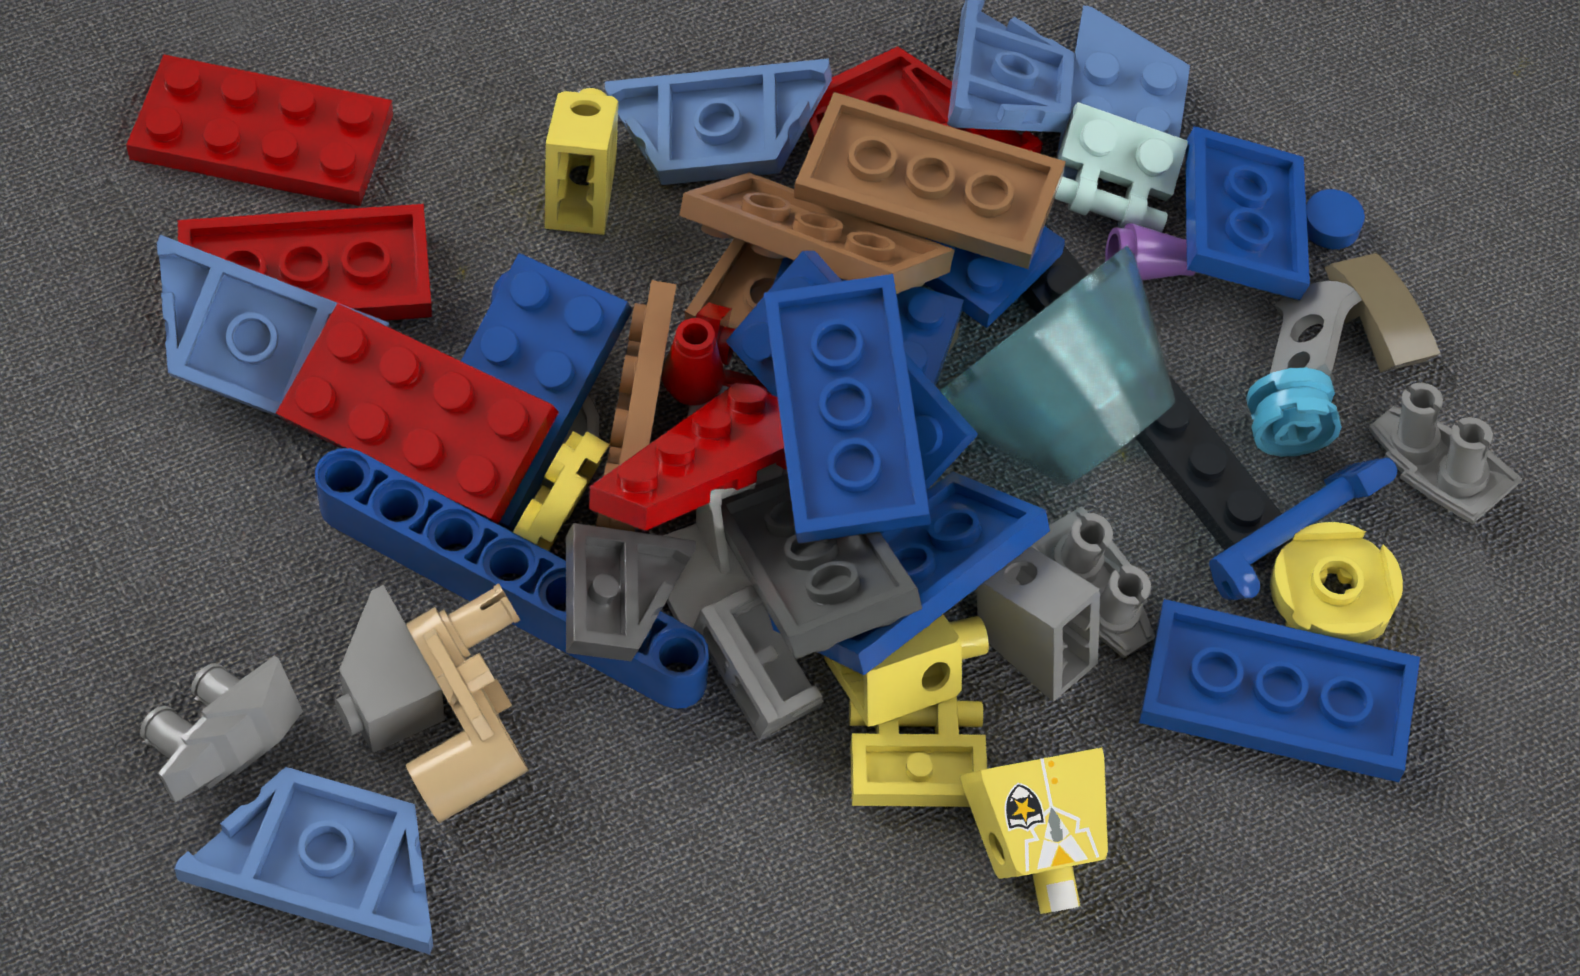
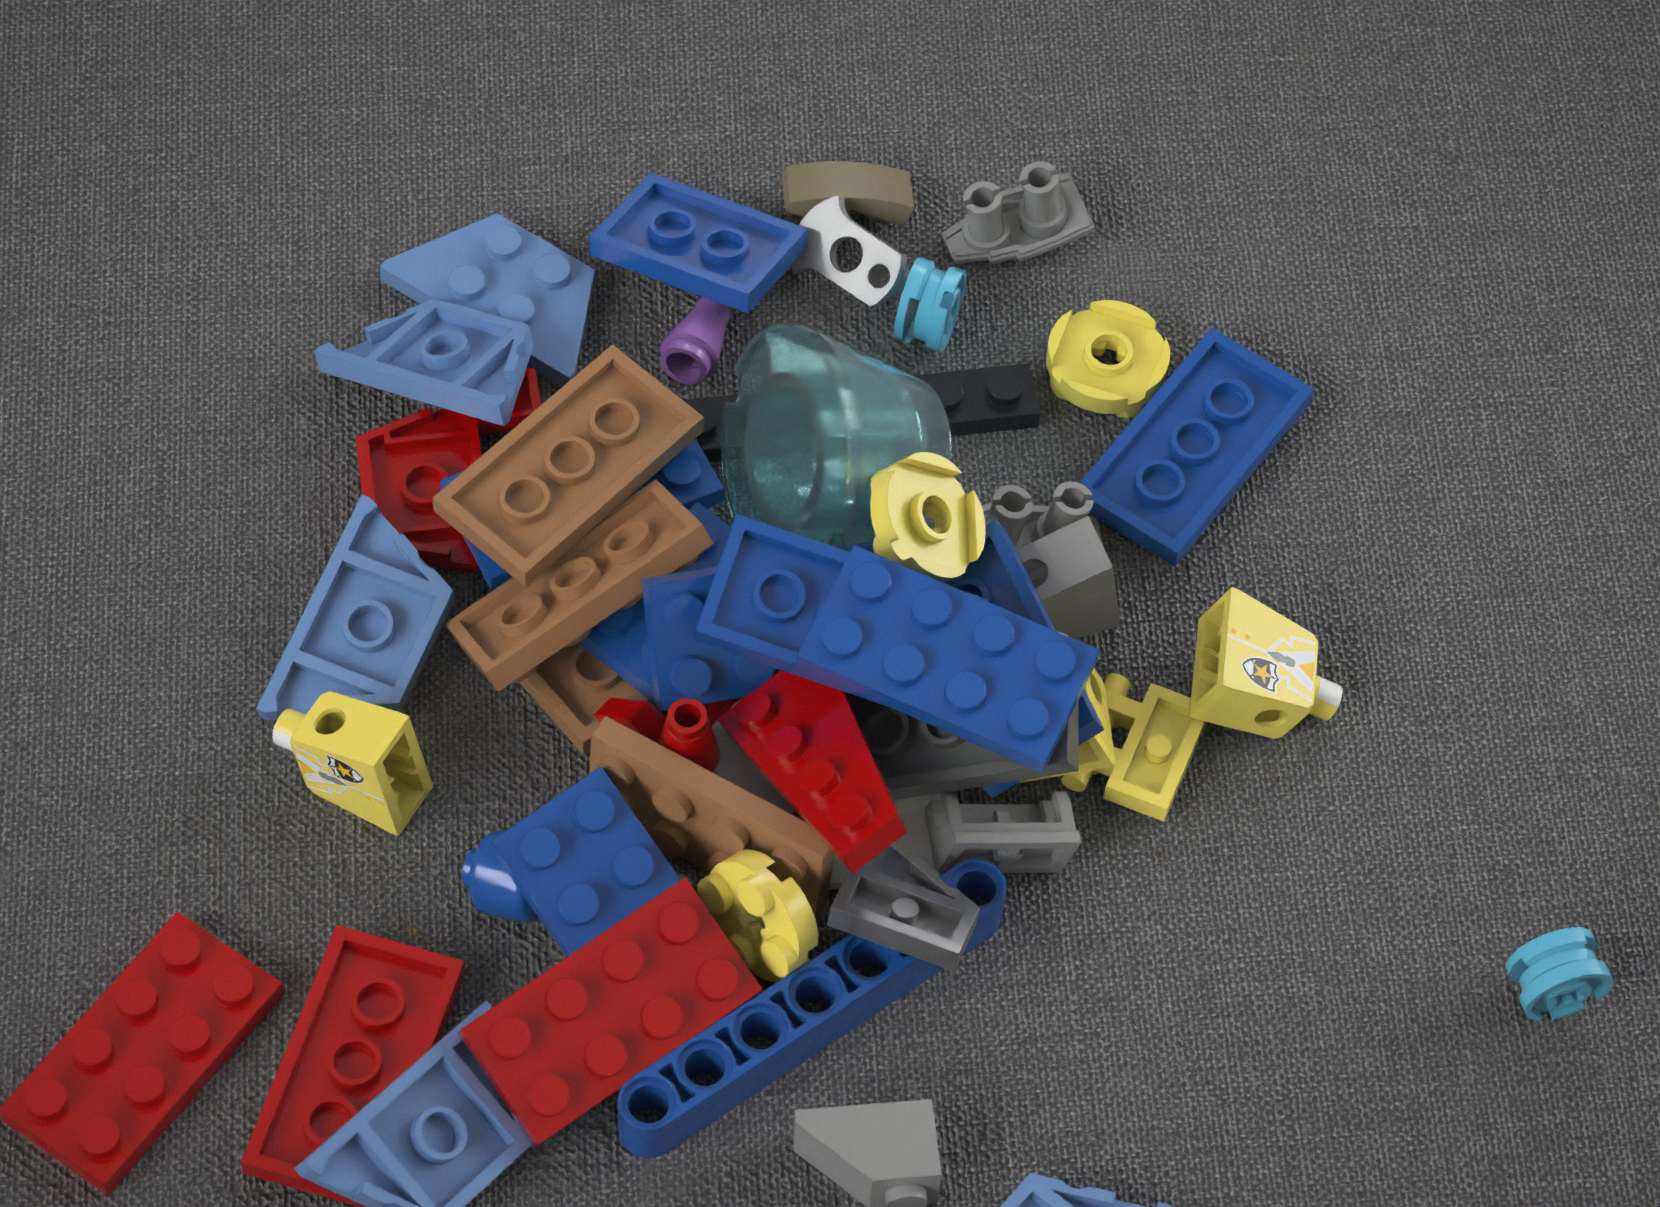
camera: 65 degrees left, 0 degrees up
(483, 753) = (1003, 1087): tan piece -> none
(837, 497) = (948, 658): none -> blue plate
(1033, 453) = (898, 522): none -> light yellow plate
(1123, 154) = (585, 304): light aqua plate -> none
(1233, 568) = (1012, 303): blue hinge -> none
(1334, 219) = (725, 178): blue tile -> none

